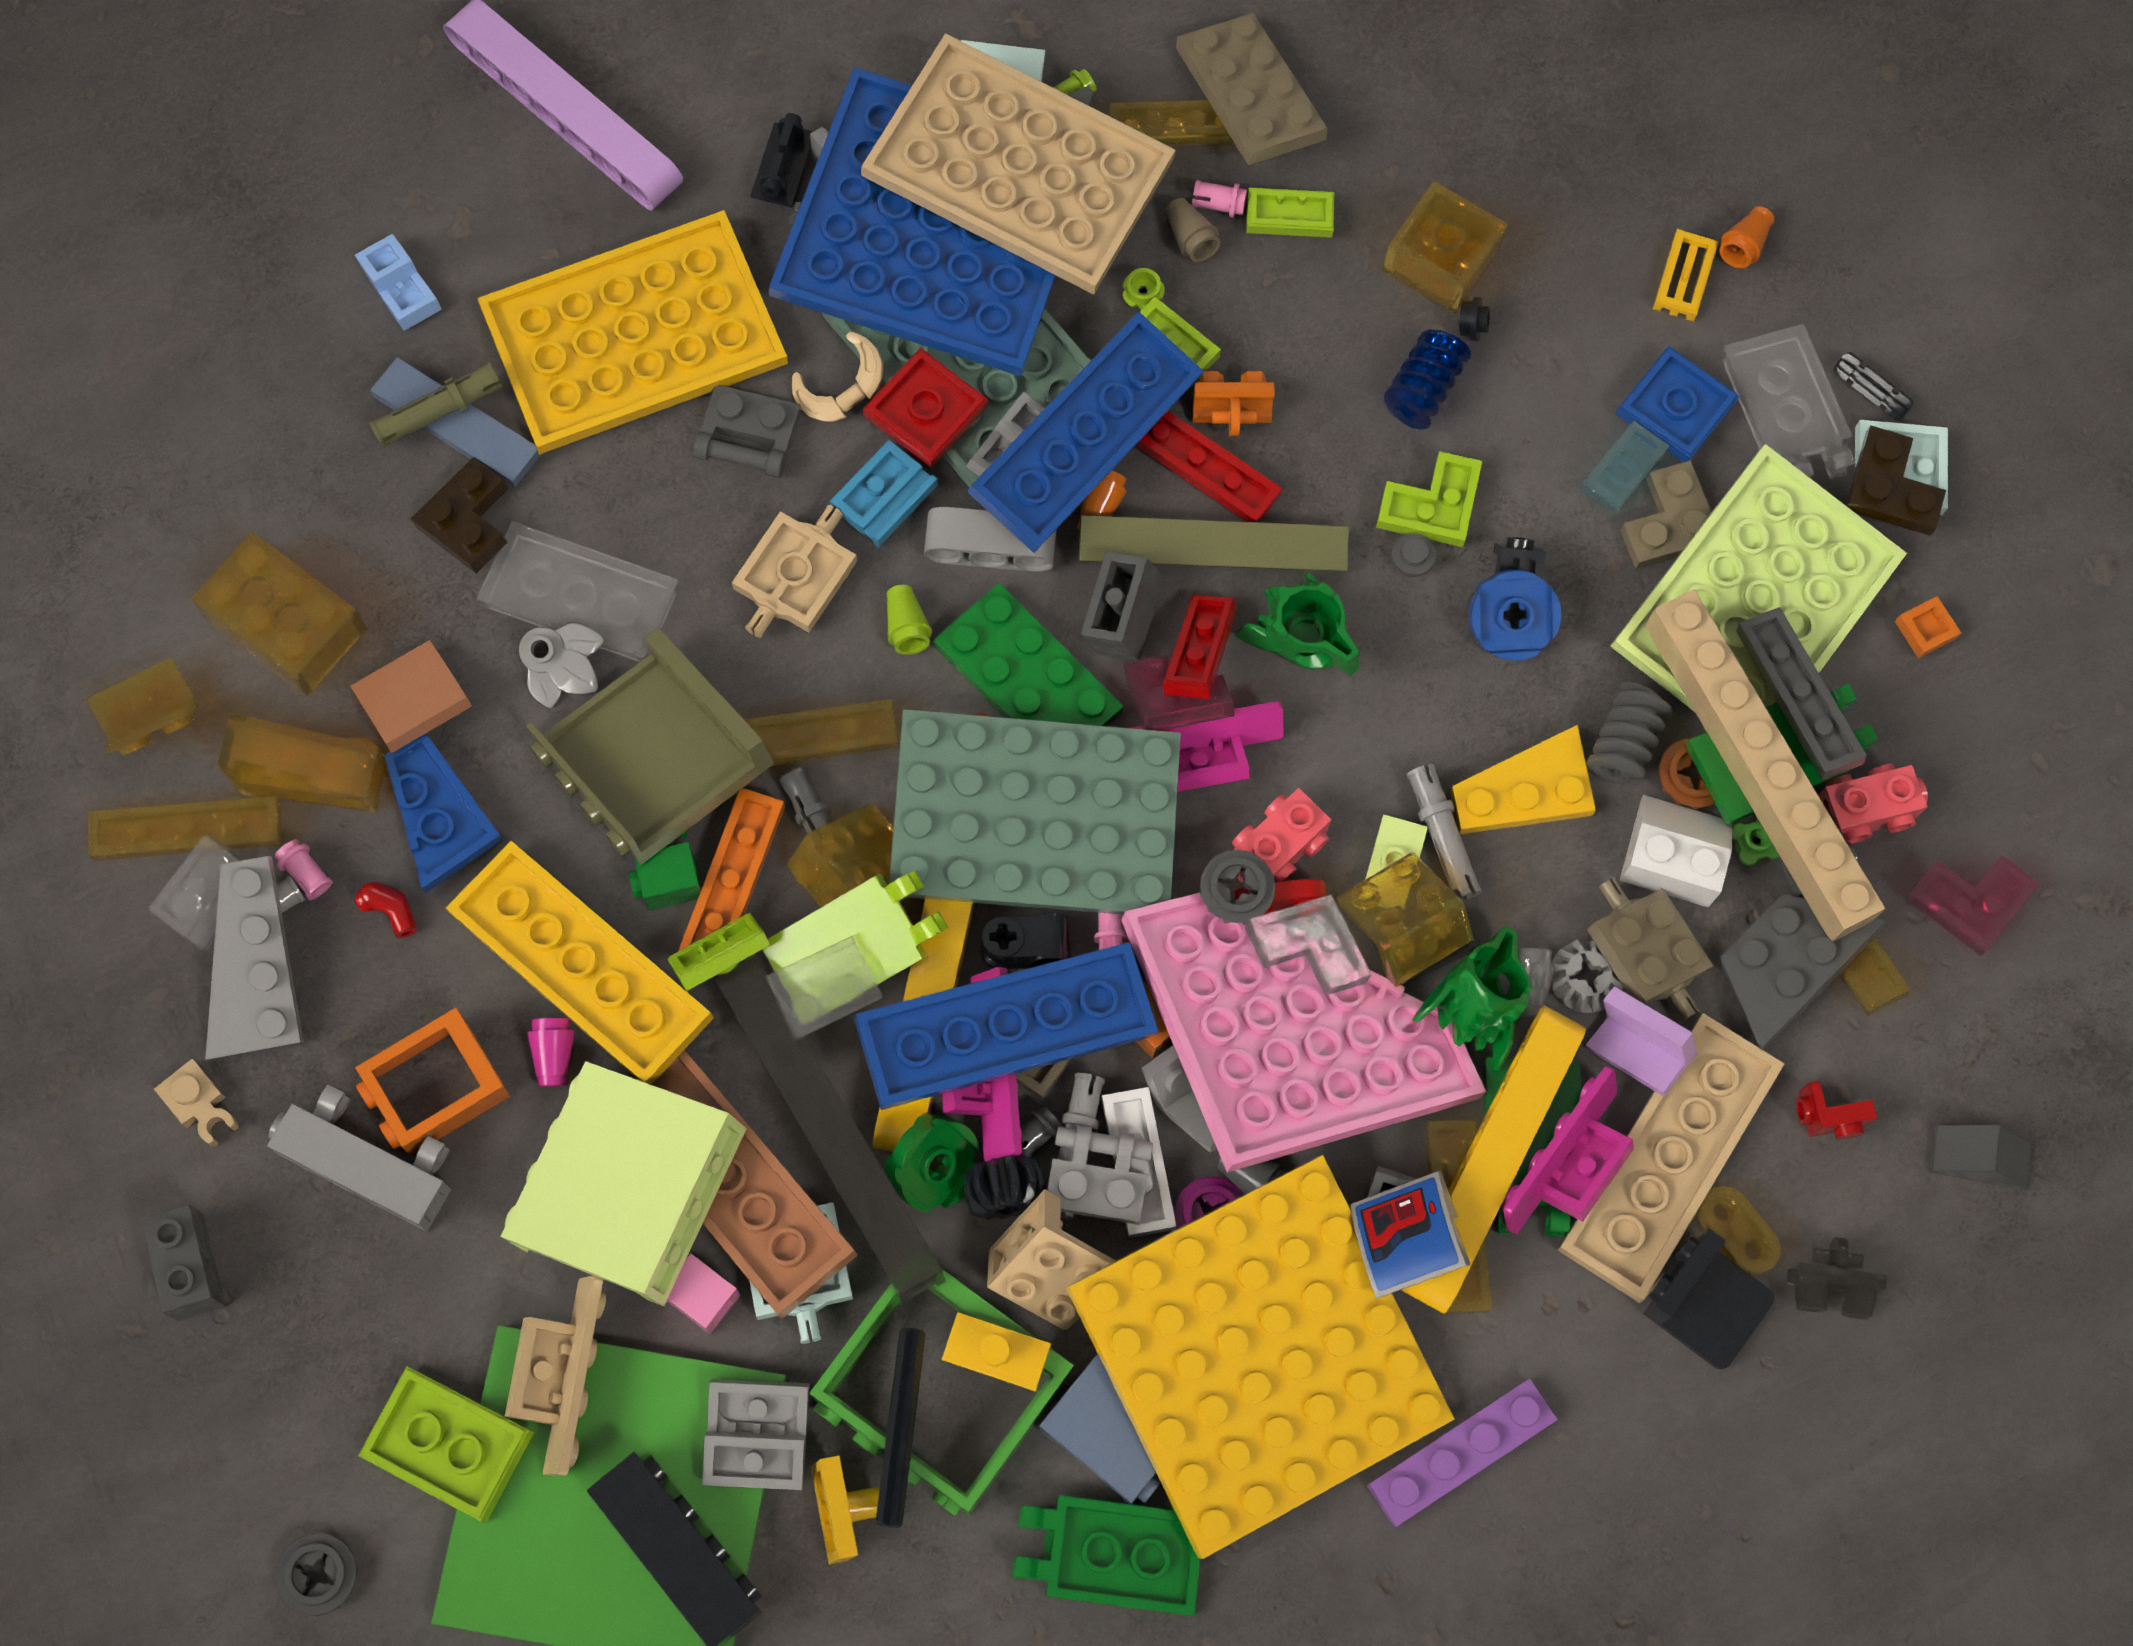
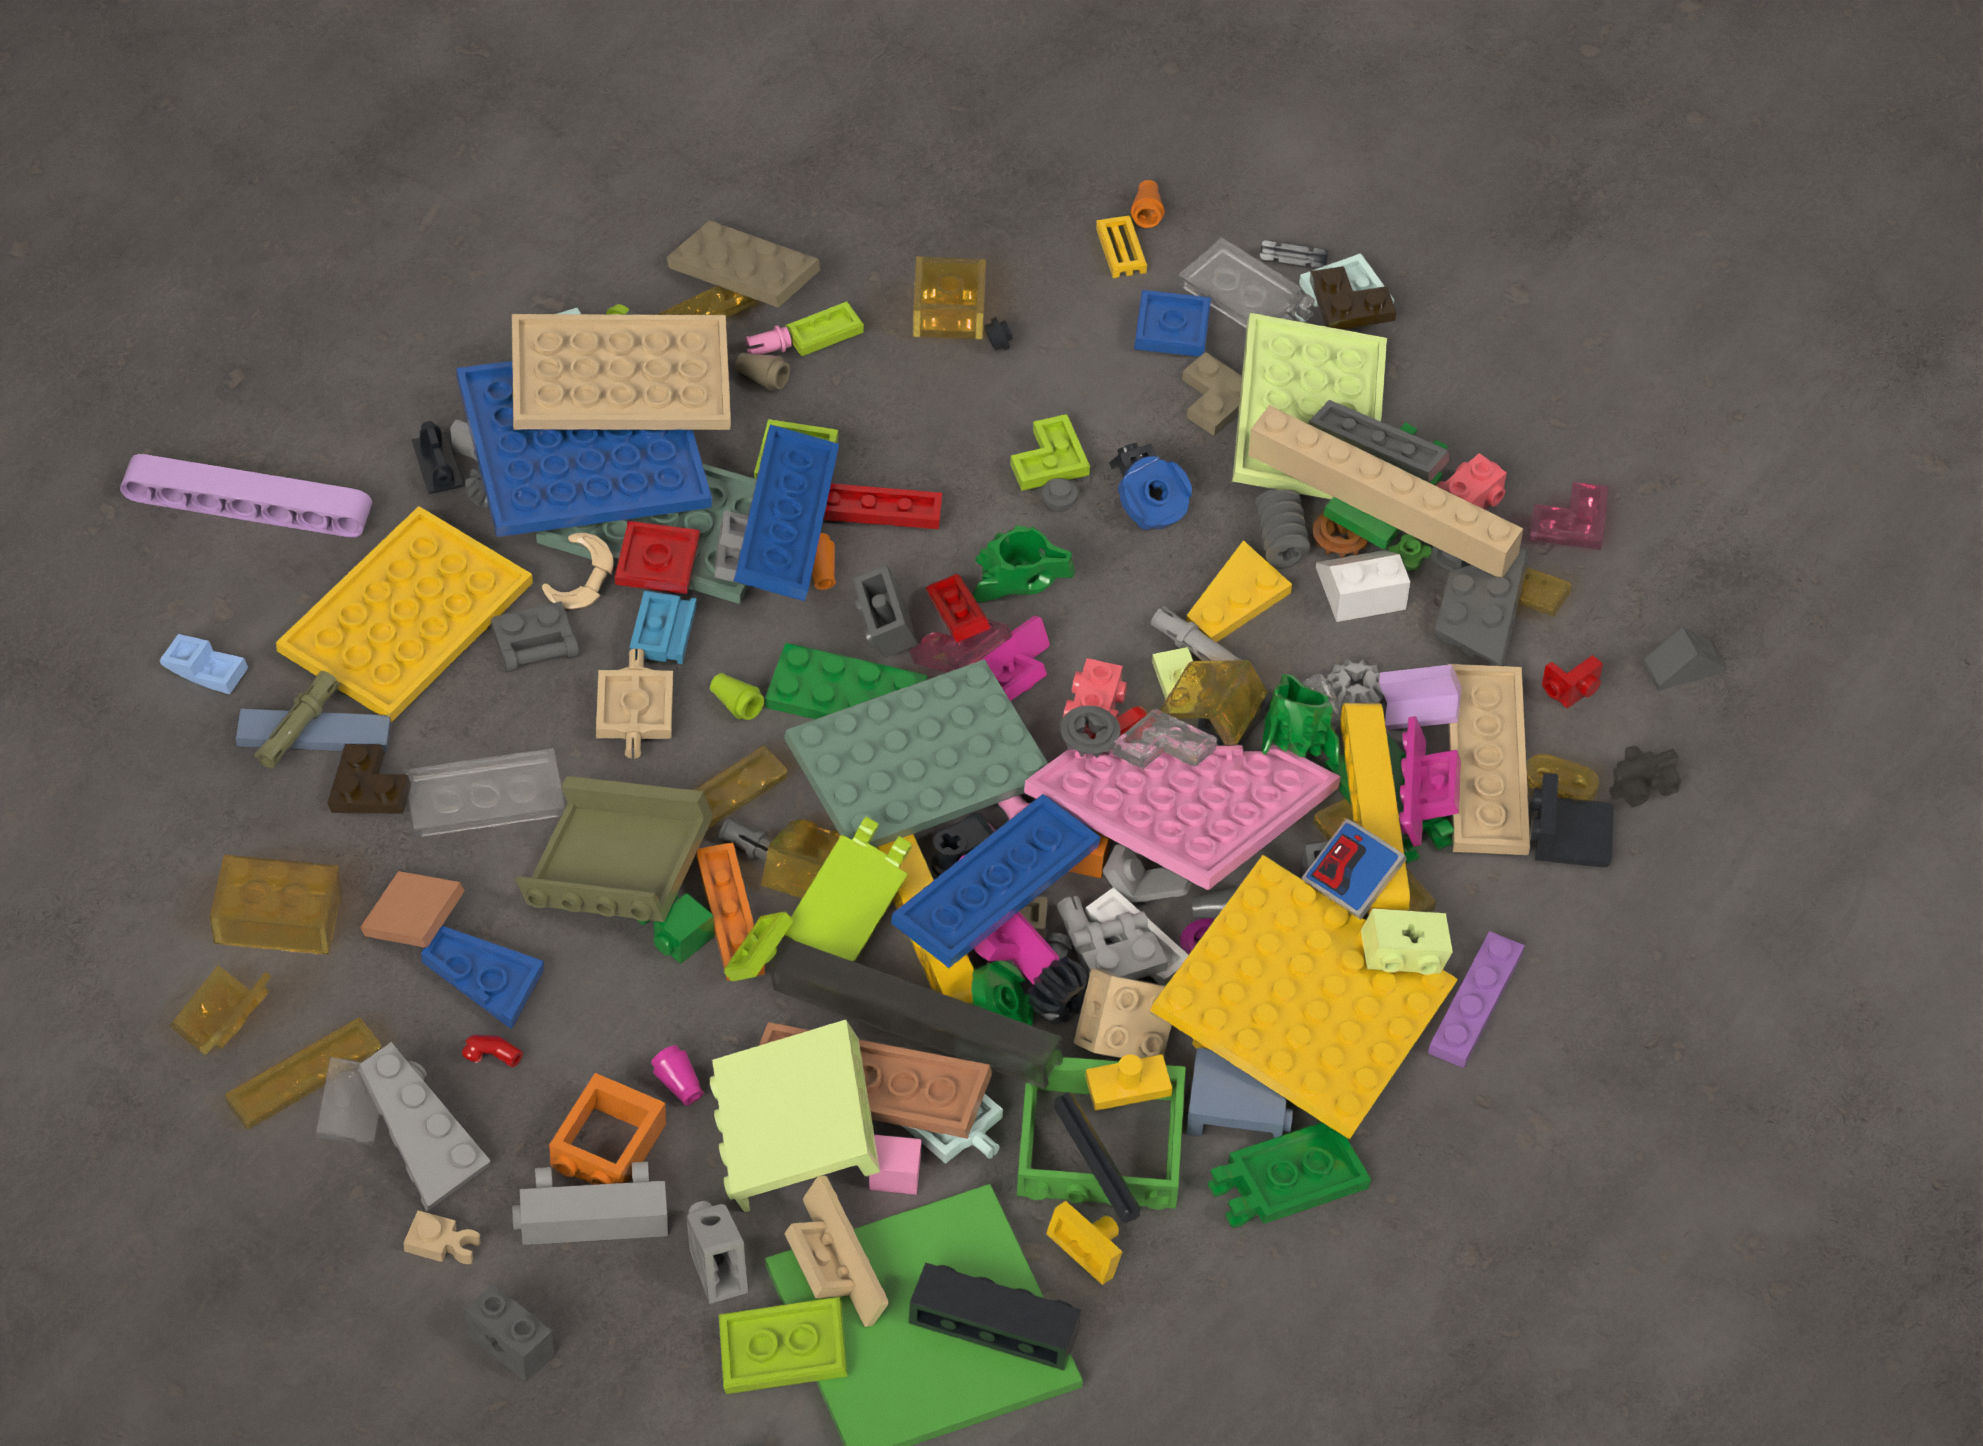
camera: 30 degrees left, 20 degrees down
(301, 764) = (366, 985): clear yellow wedge -> none
(303, 869) = (416, 1053): bright pink pin -> none
(446, 1289) = (712, 1233): none -> light grey torso
(564, 665) = (510, 840): light grey plate -> none
(580, 963) = (659, 1007): yellow plate -> none
(756, 1434) = (997, 1223): light grey slope -> none
(824, 987) = (852, 924): clear plate -> none
(980, 540) = (757, 621): light grey beam -> none
(1139, 279) = (753, 420): lime plate -> none
(1216, 543) = (921, 546): olive tile -> none
(1233, 402) = (870, 458): orange hips -> none
(1426, 377) = (993, 382): clear blue piece -> none
(1438, 1359) = (1406, 941): none -> yellowish green brick
(1624, 467) = (1164, 376): clear light blue plate -> none
(1650, 948) = (1383, 642): dark tan plate -> none
(1927, 627) = (1431, 376): orange plate -> none

